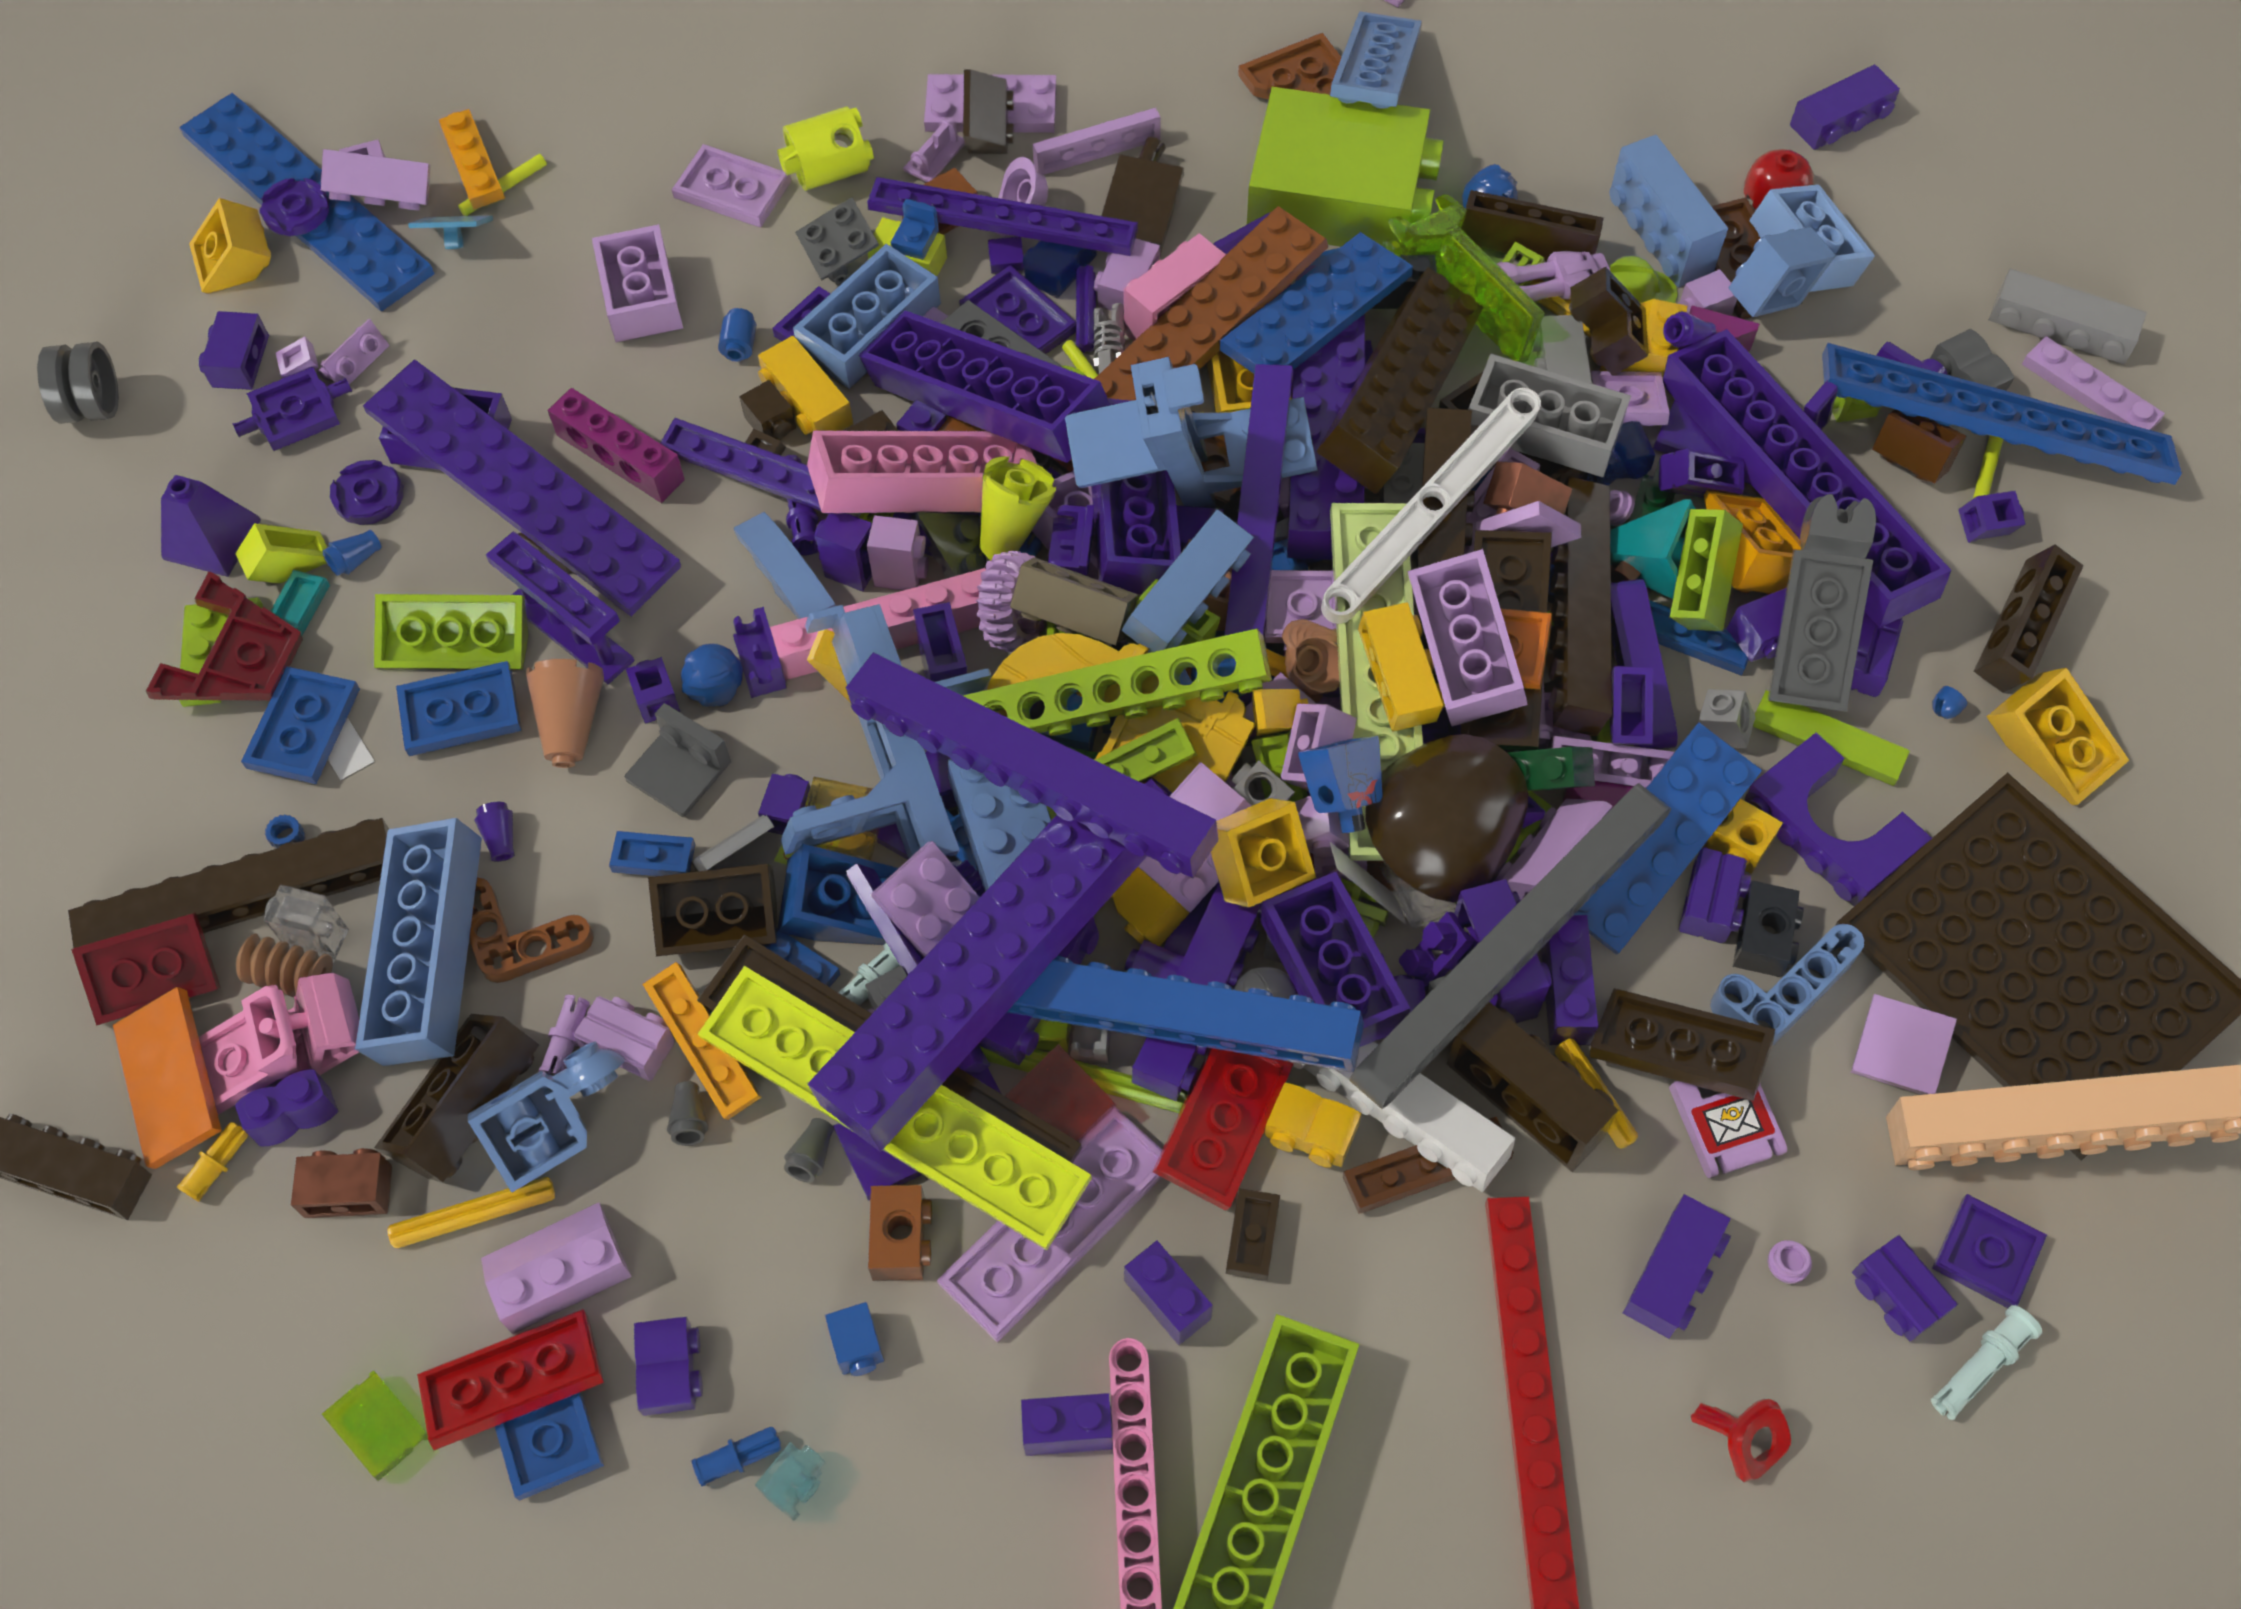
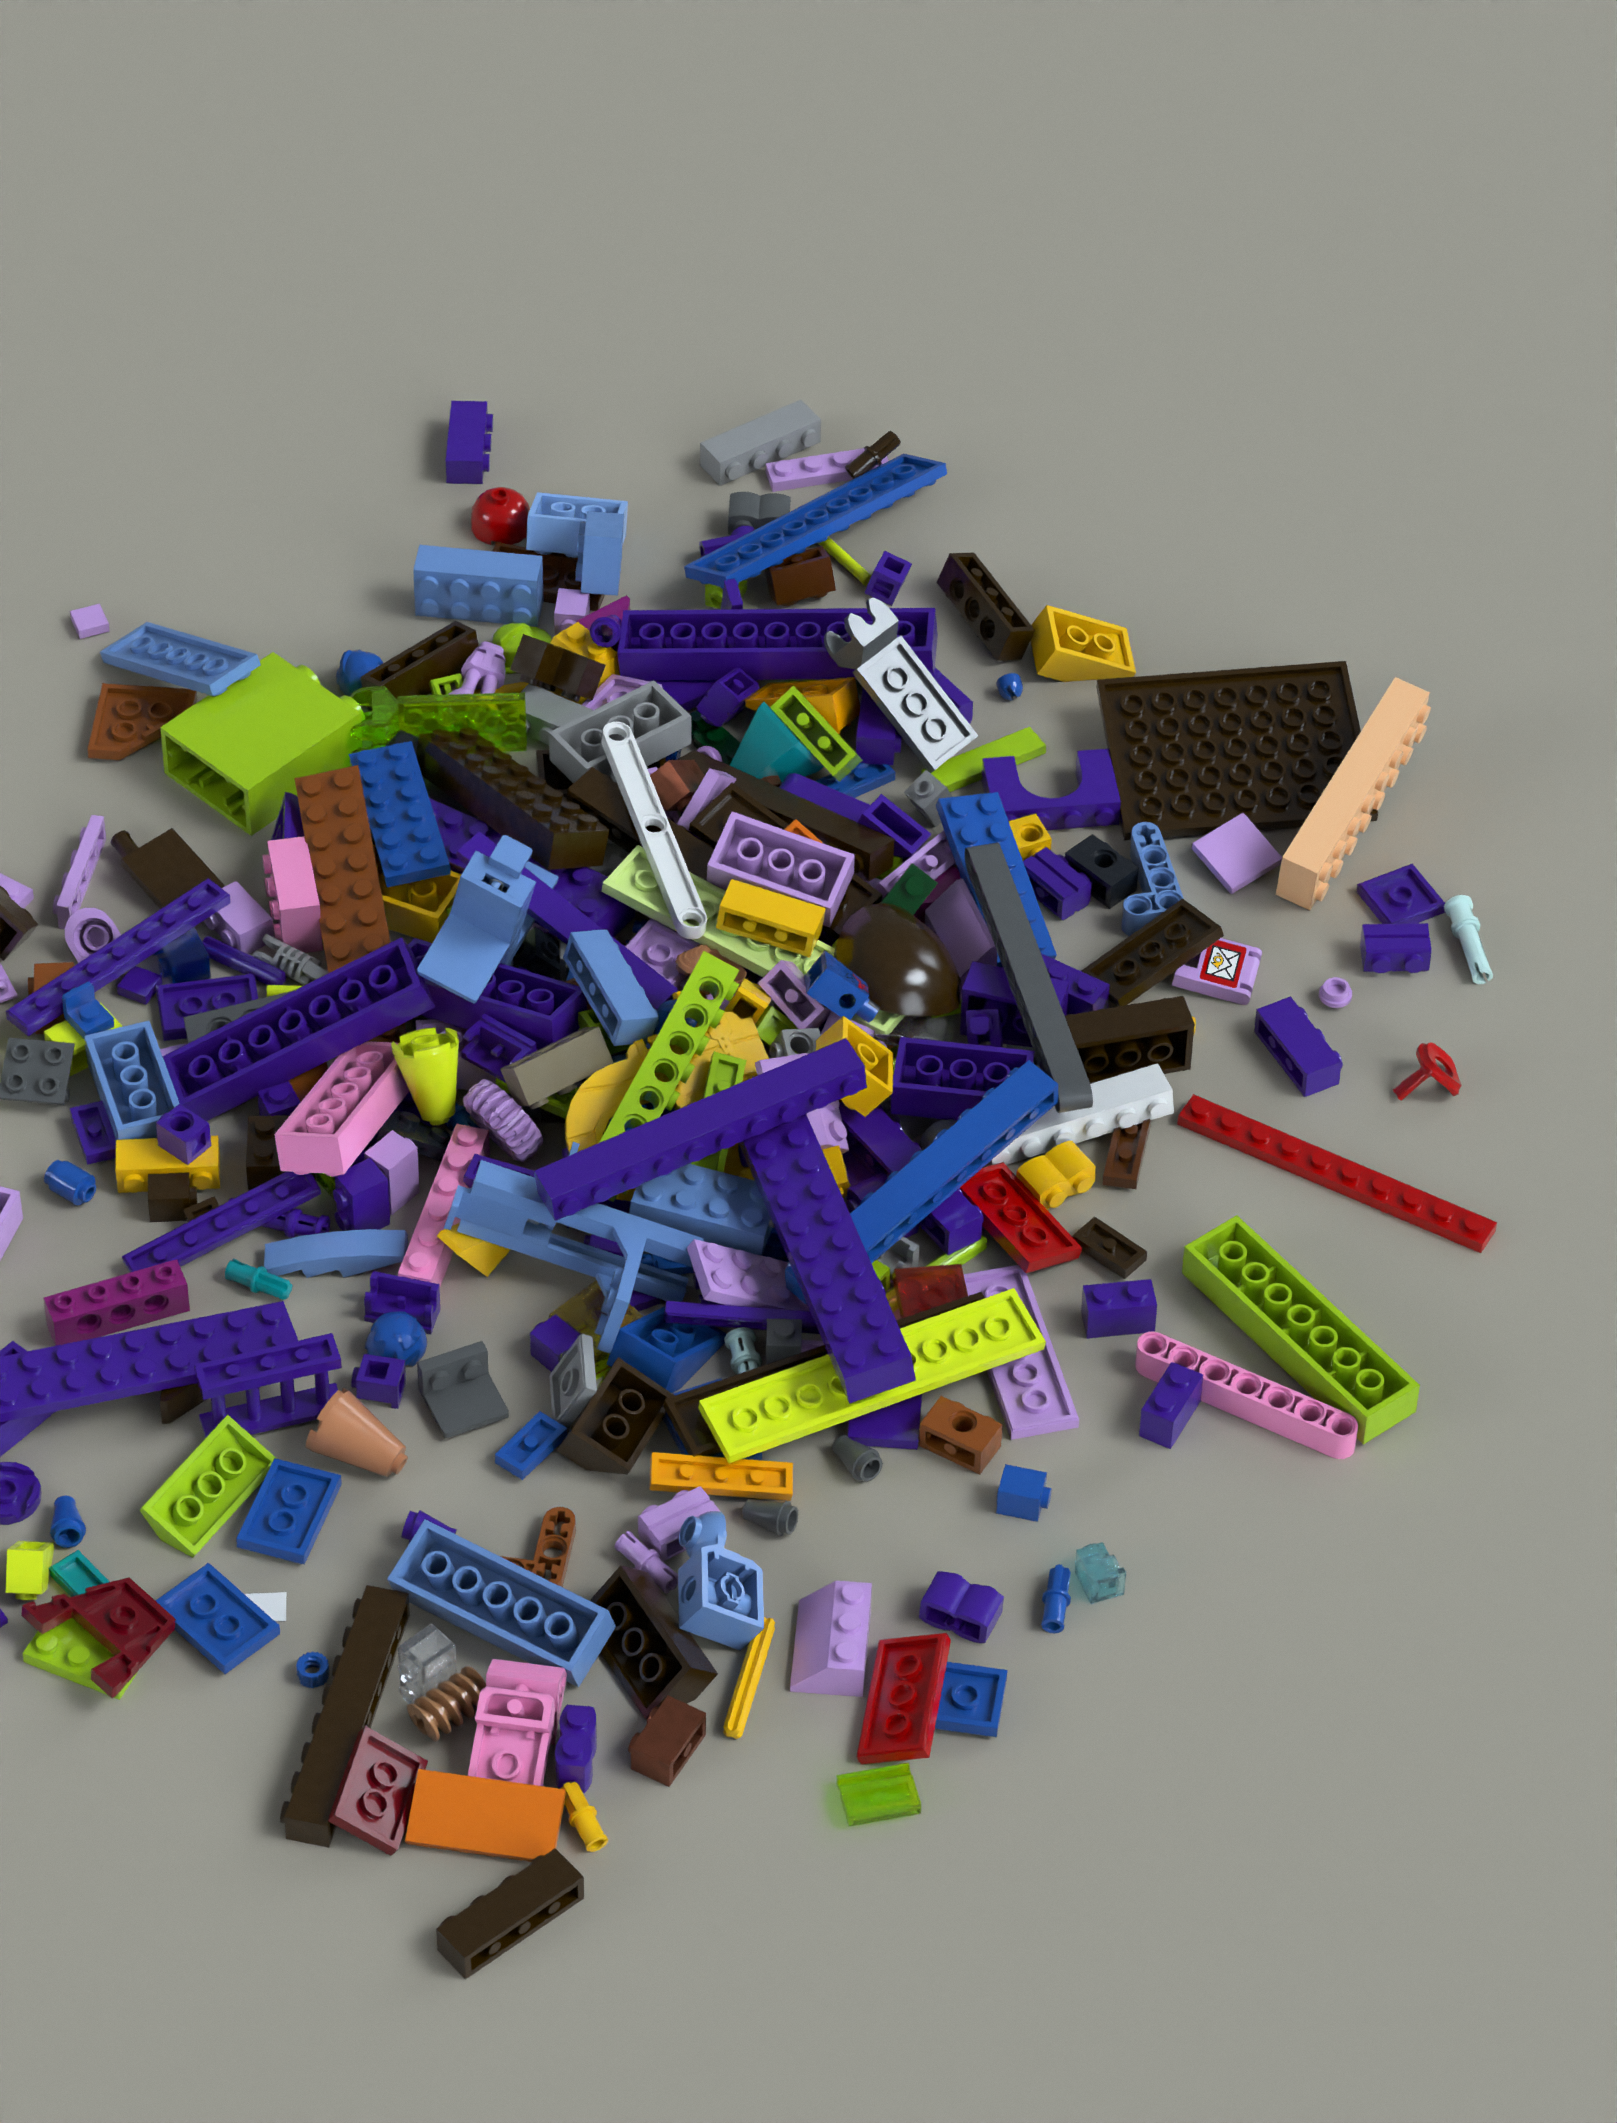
camera: 60 degrees left, 15 degrees down
(719, 530) = (258, 1279): none -> teal axle
(818, 374) = (183, 1134): none -> dark purple brick
(2136, 410) = (873, 455): none -> dark brown axle

